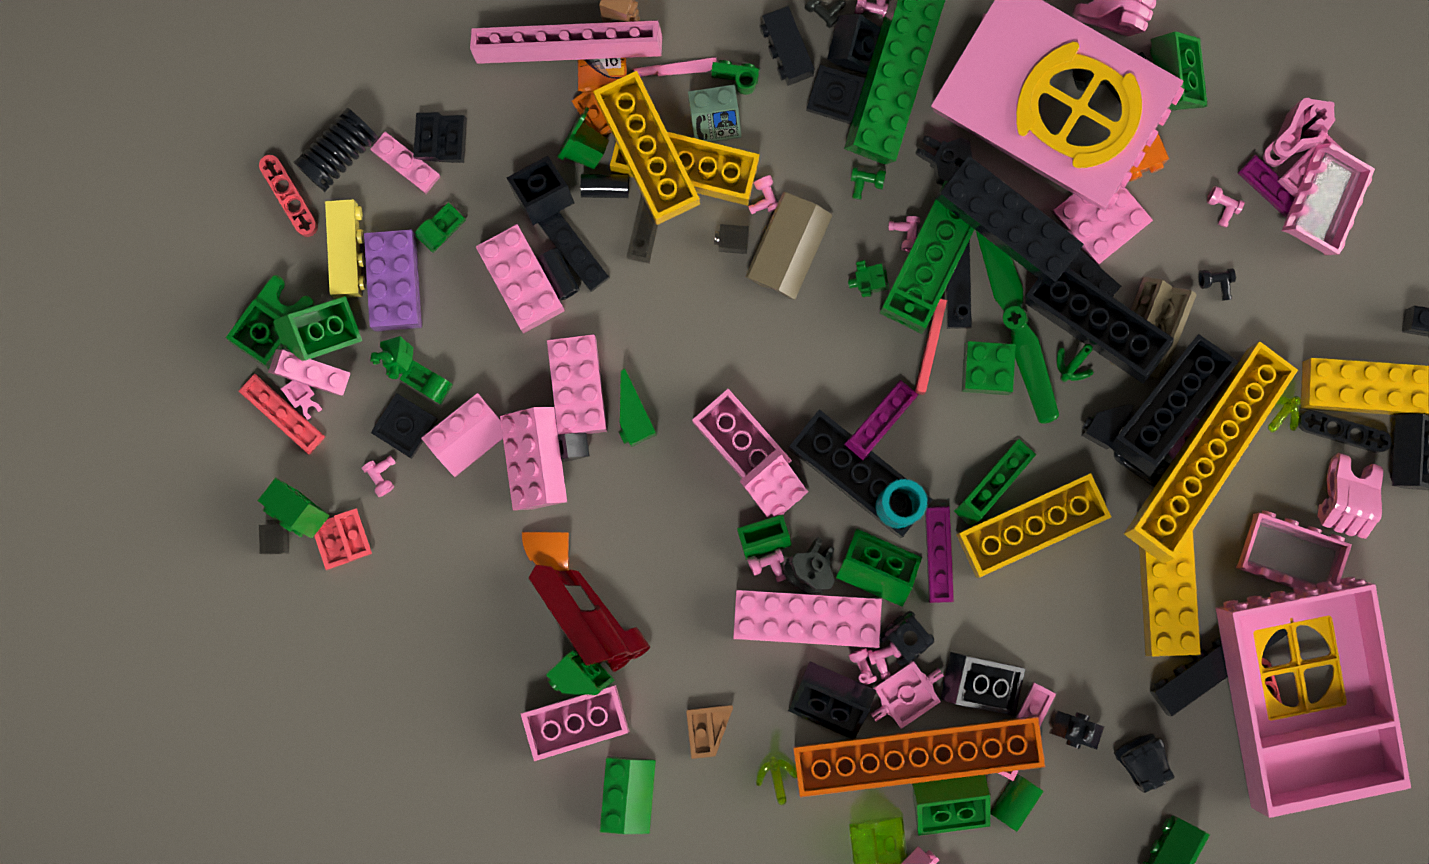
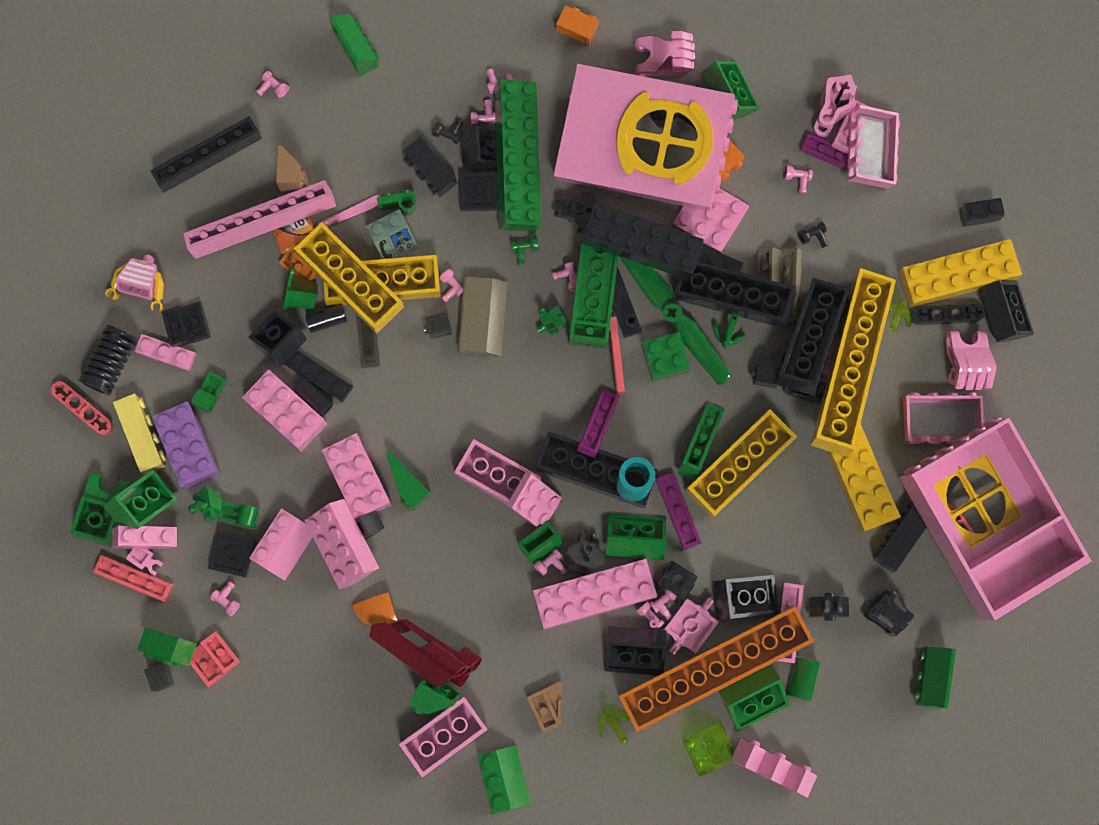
camera: 25 degrees left, 5 degrees down
(403, 66) = (138, 279): none -> torso

